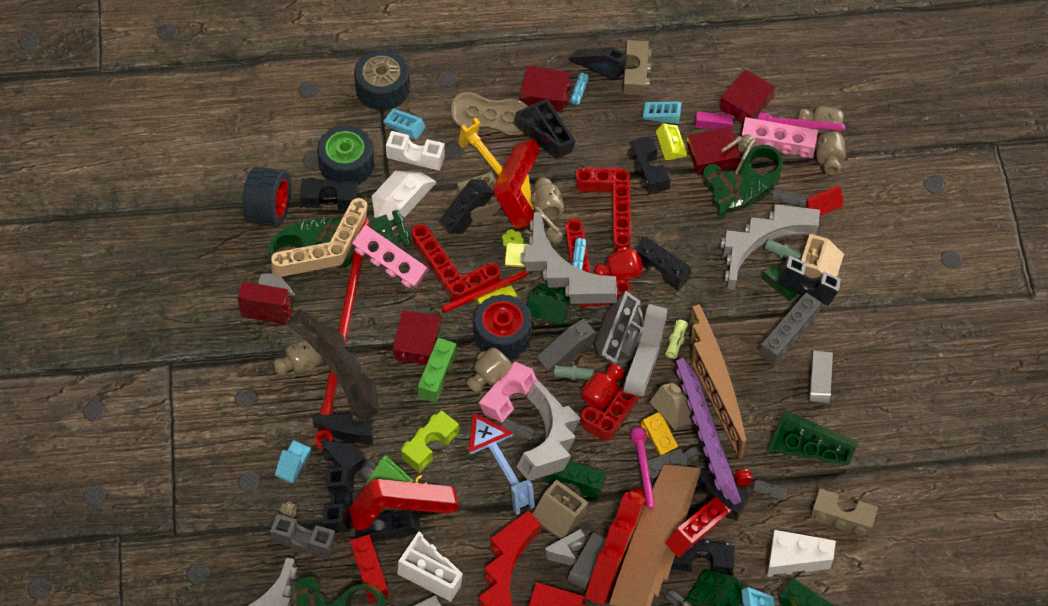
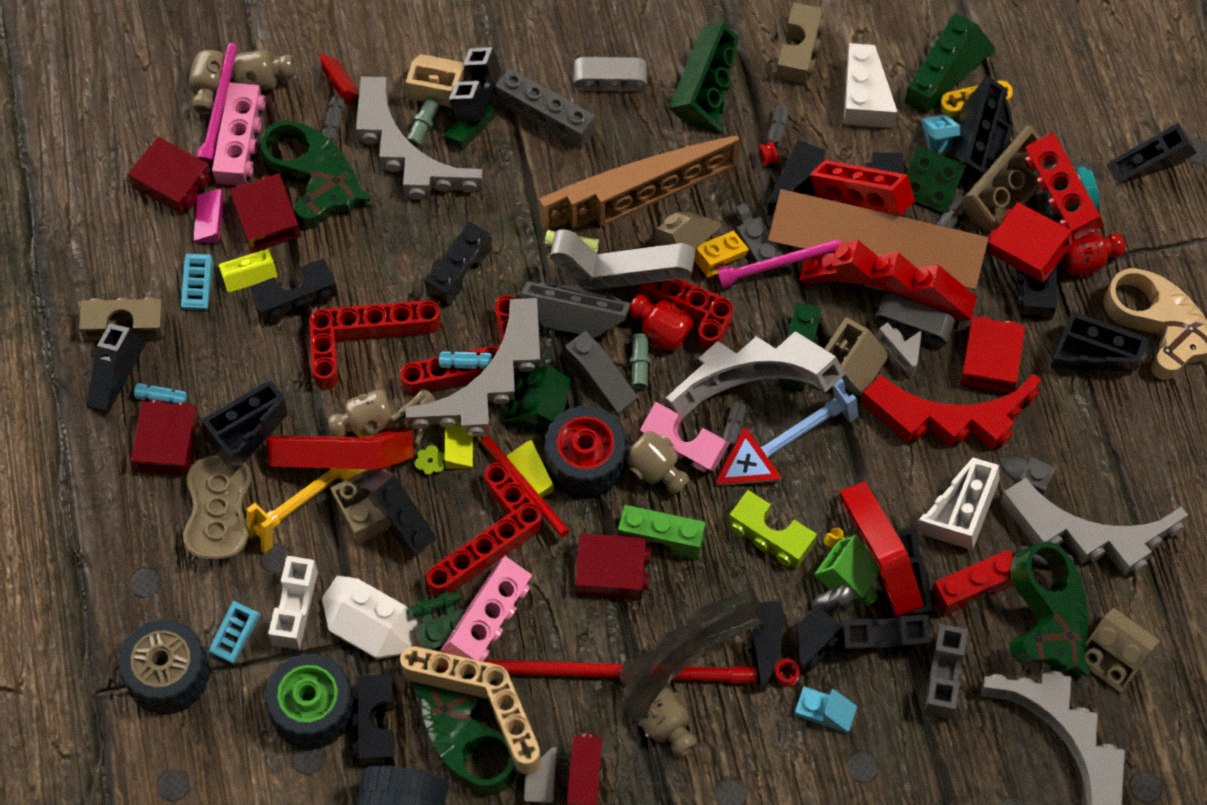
camera: 95 degrees left, 5 degrees up
(288, 509) = (904, 702): dark tan plate -> none
(623, 264) = (471, 309): red piece -> none
(707, 433) = (731, 182): medium lavender plate -> none
(745, 144) = (258, 167): dark tan plant -> none

